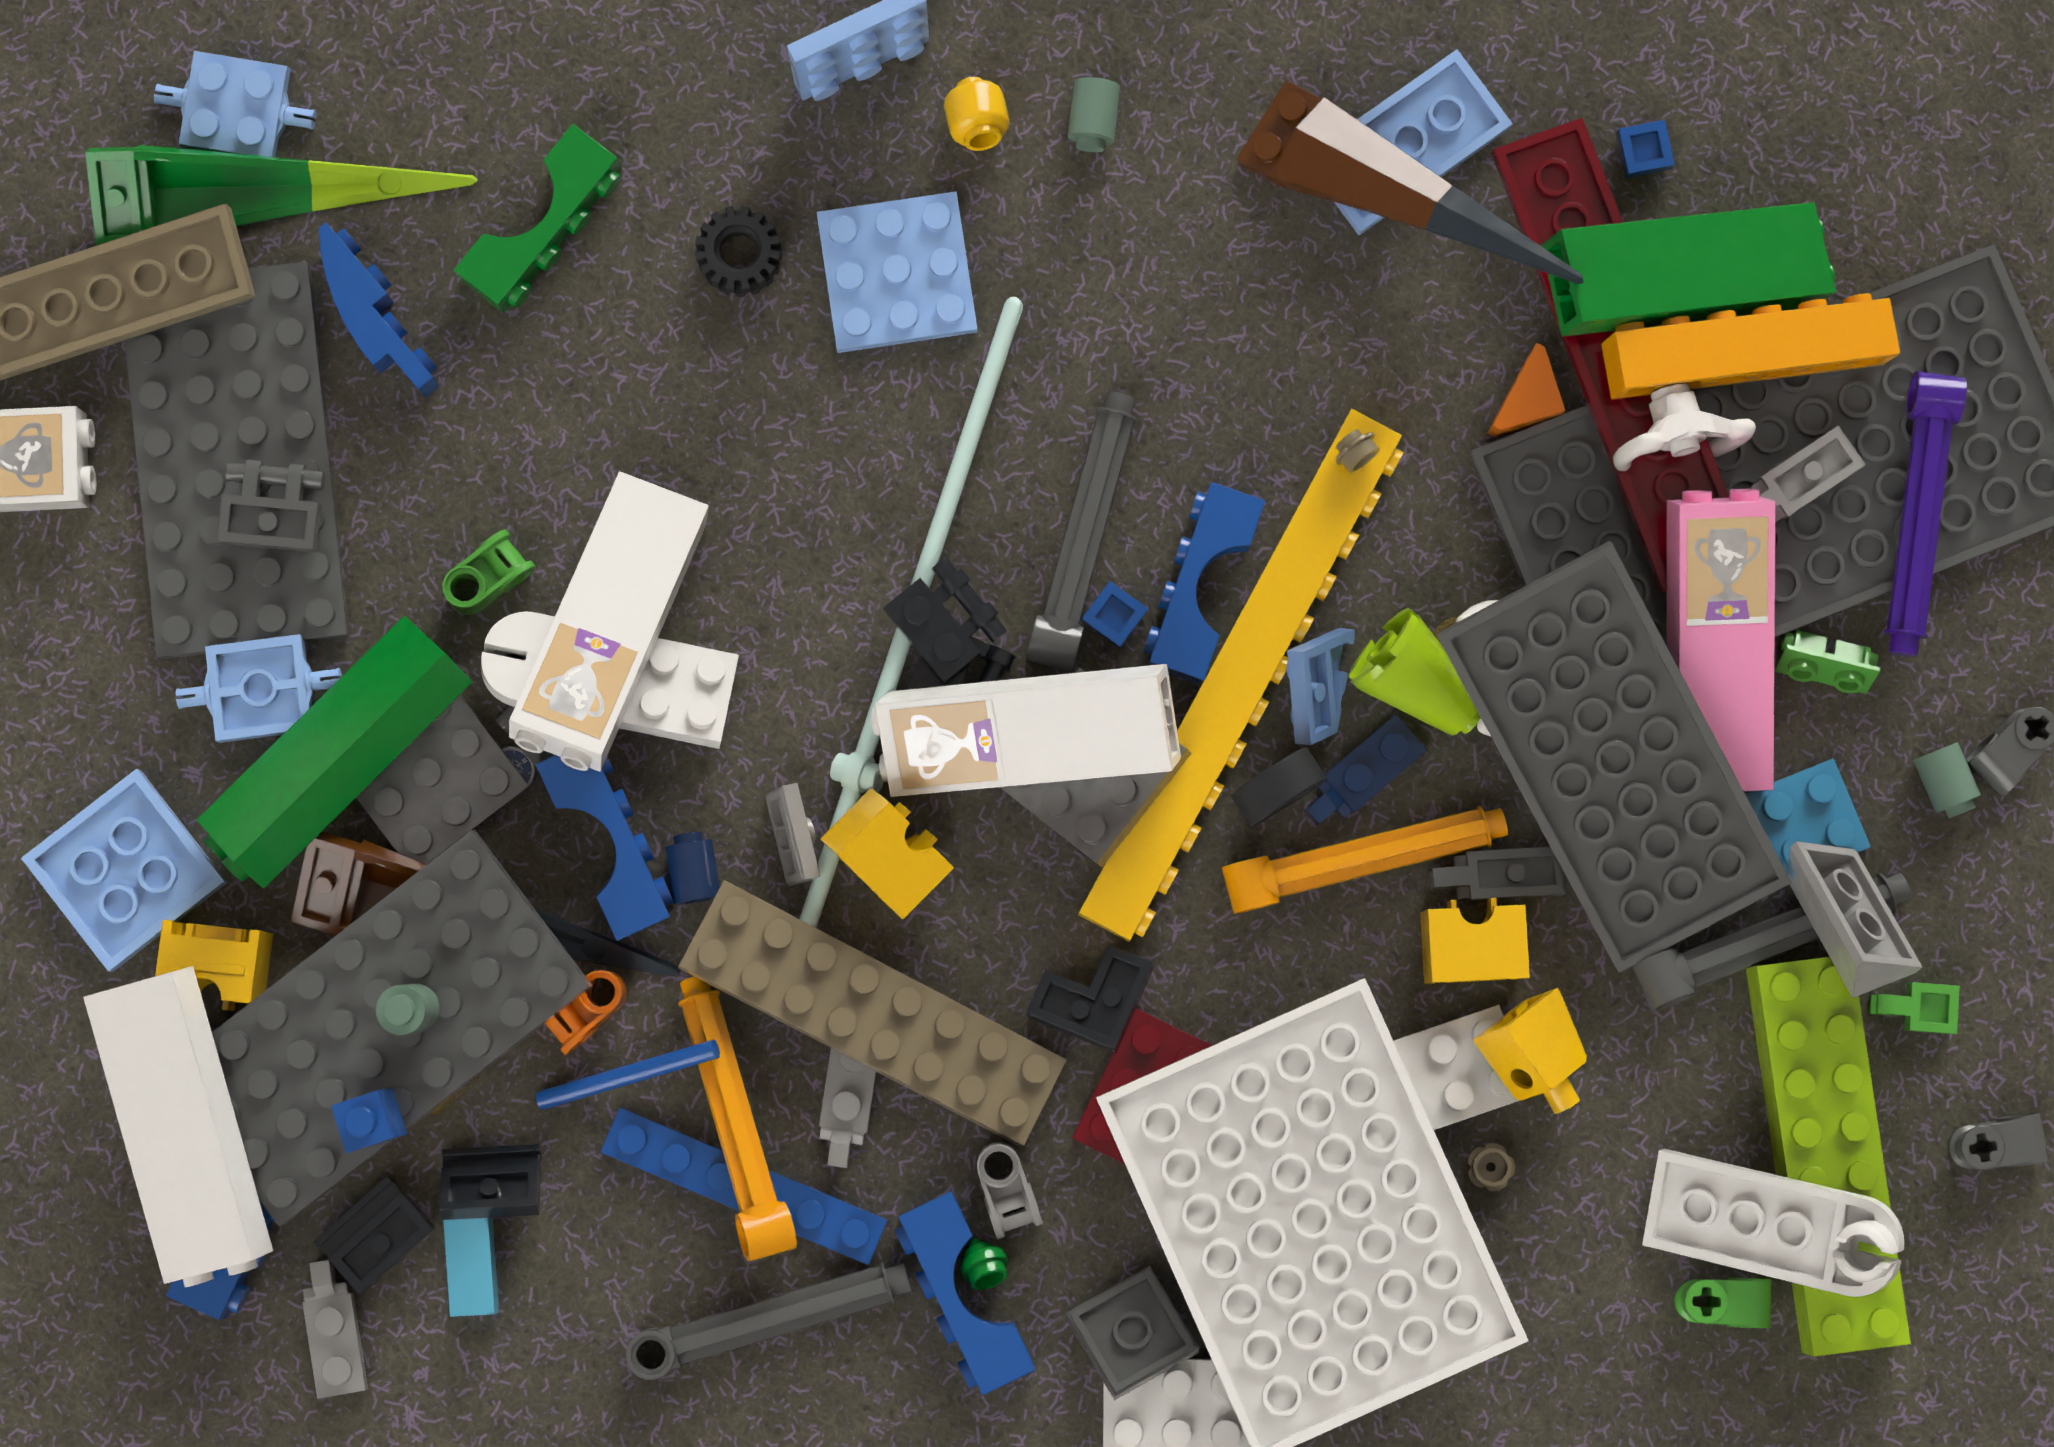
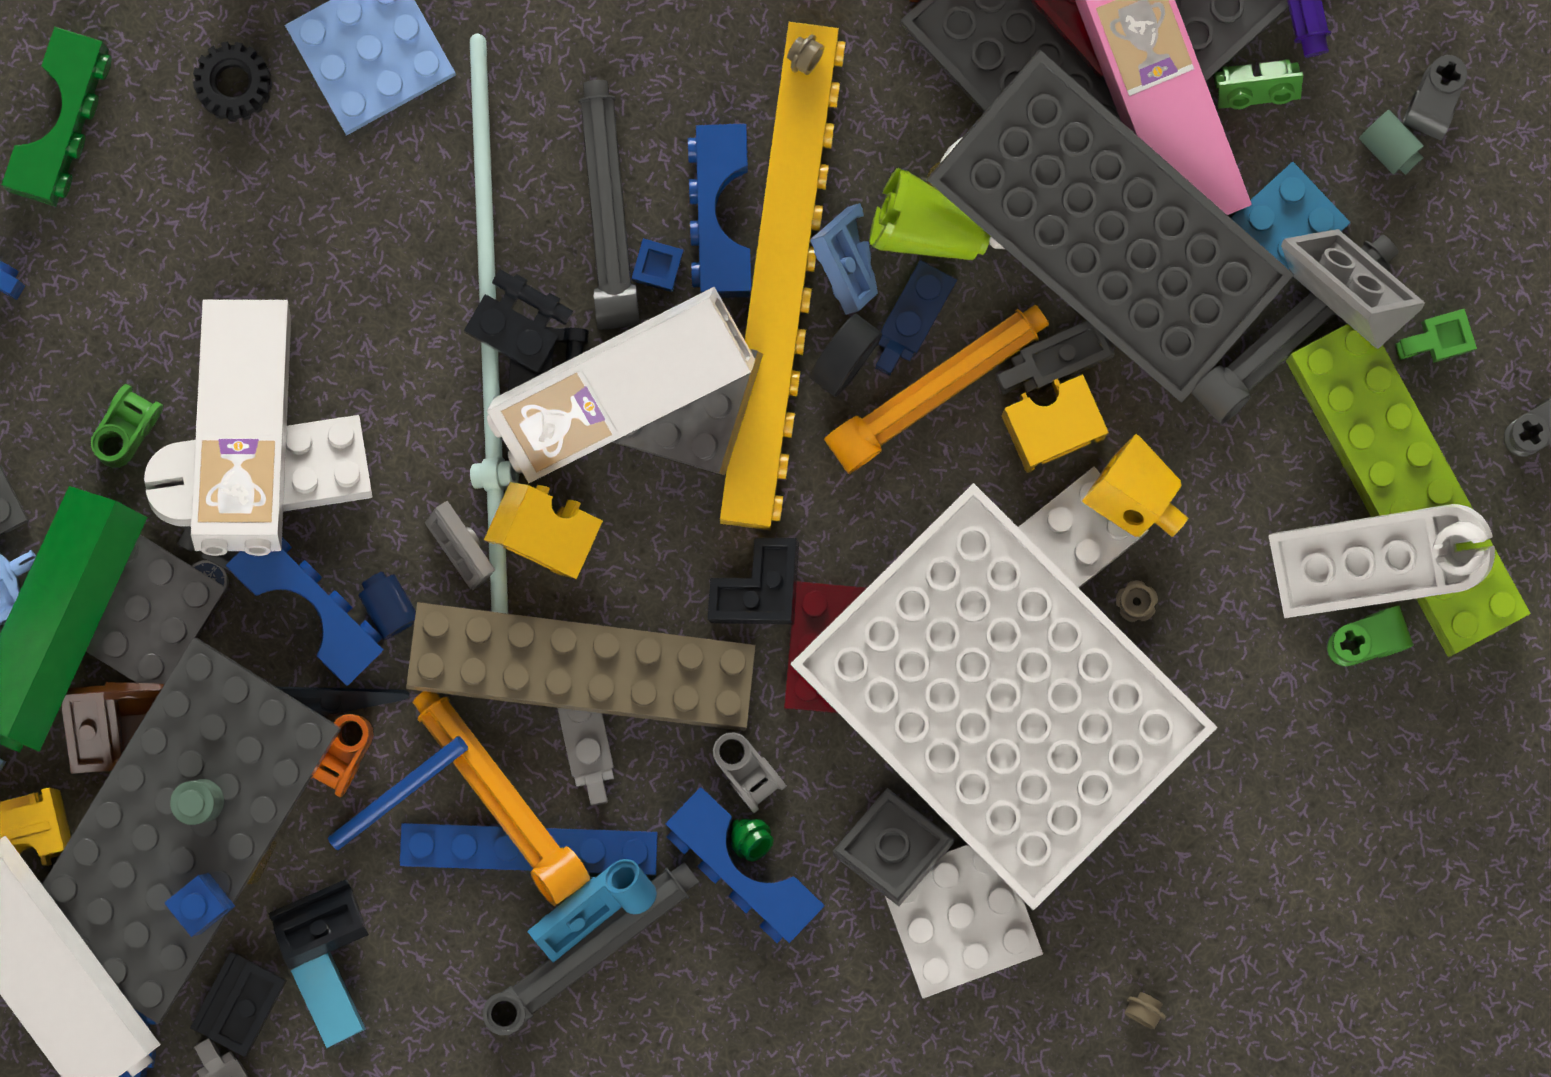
camera: 15 degrees left, 0 degrees up
(821, 1265) = (616, 887): none -> dark azure plate

